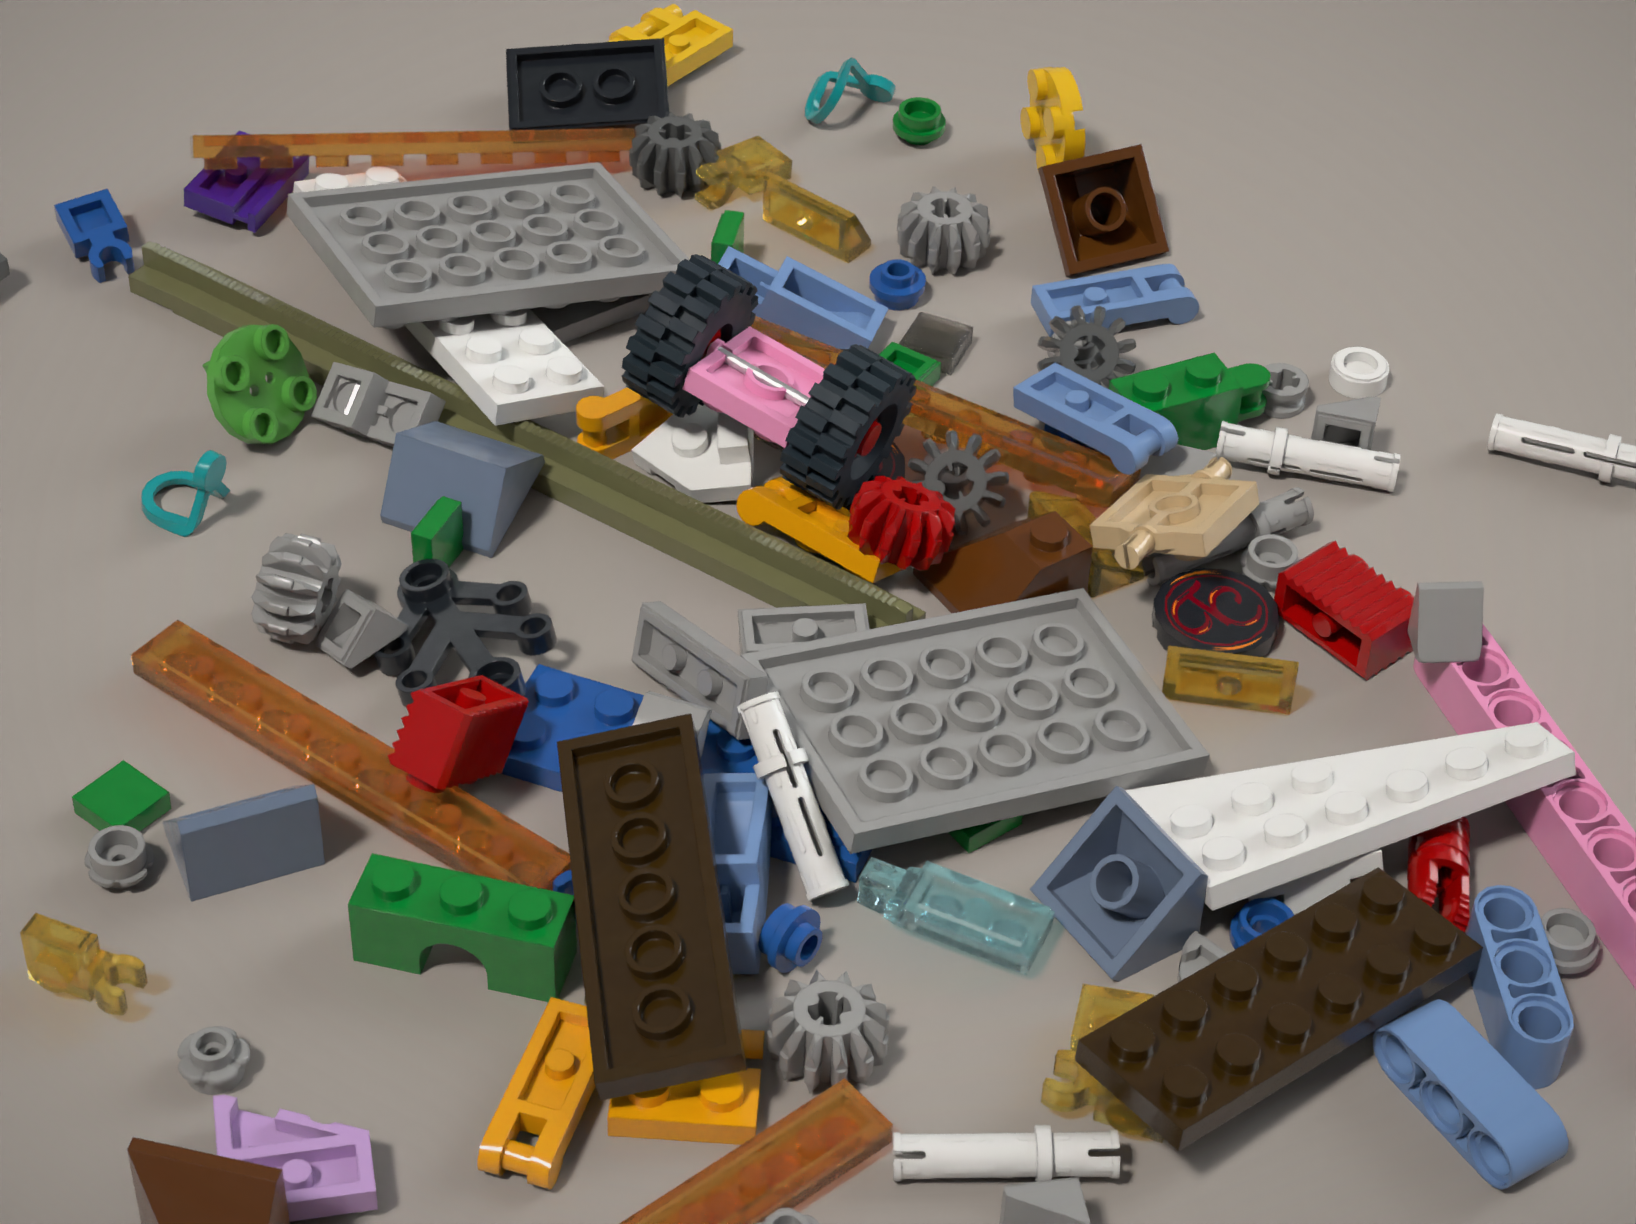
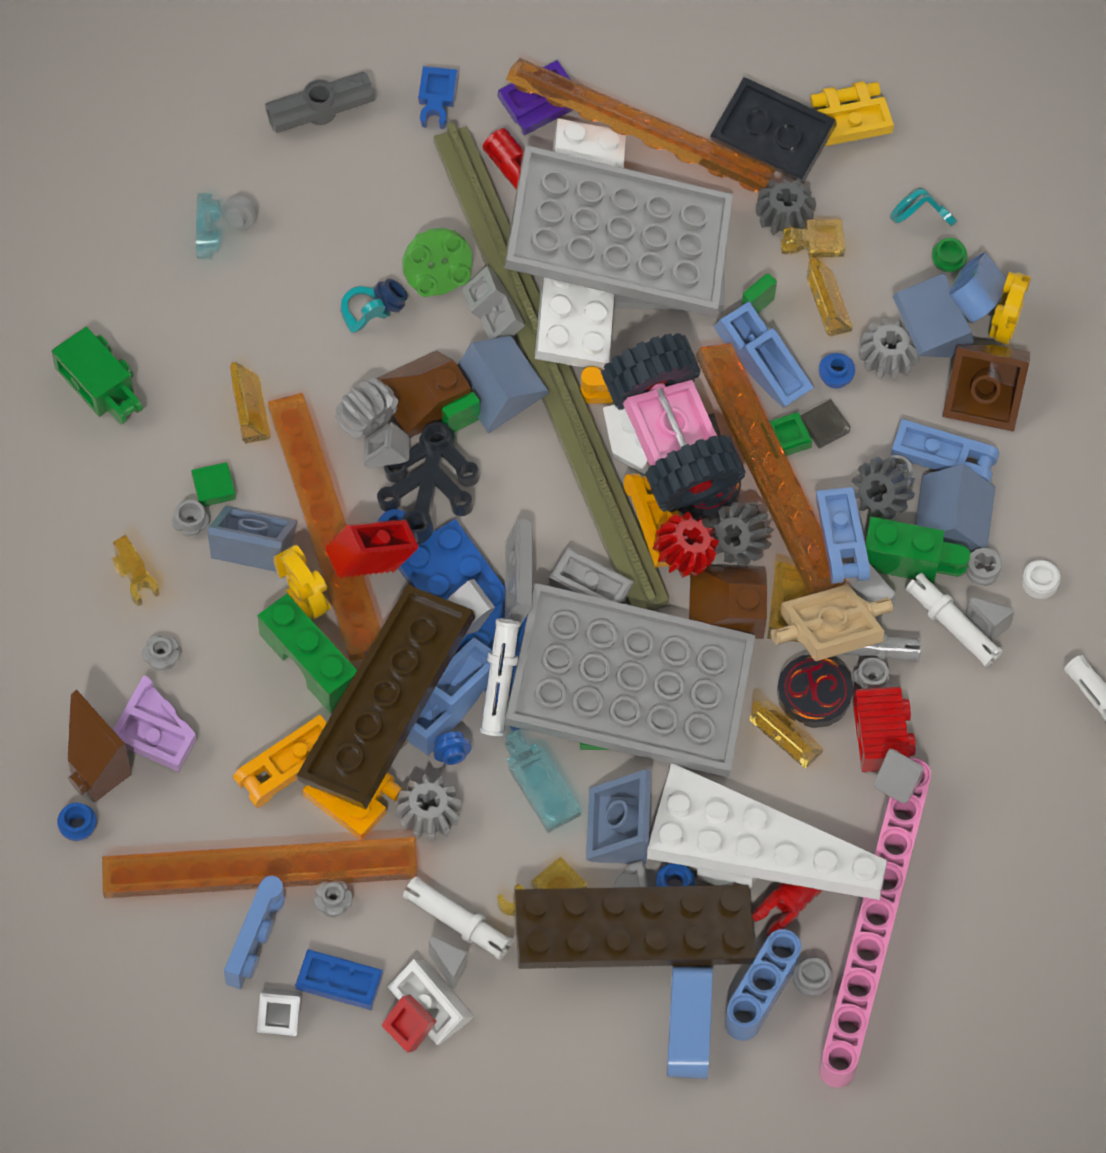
camera: 35 degrees right, 20 degrees up
(95, 681) = (249, 404): none -> clear yellow slope
(233, 457) = (391, 294): none -> dark blue plate
(262, 254) = (505, 154): none -> red hinge
(367, 812) = (304, 586): none -> yellow plate
(373, 532) = (424, 389): none -> reddish brown slope
(981, 161) = (933, 318): none -> sand blue slope
(1001, 111) = (978, 287): none -> medium blue beam
(1175, 329) = (958, 504): none -> sand blue slope

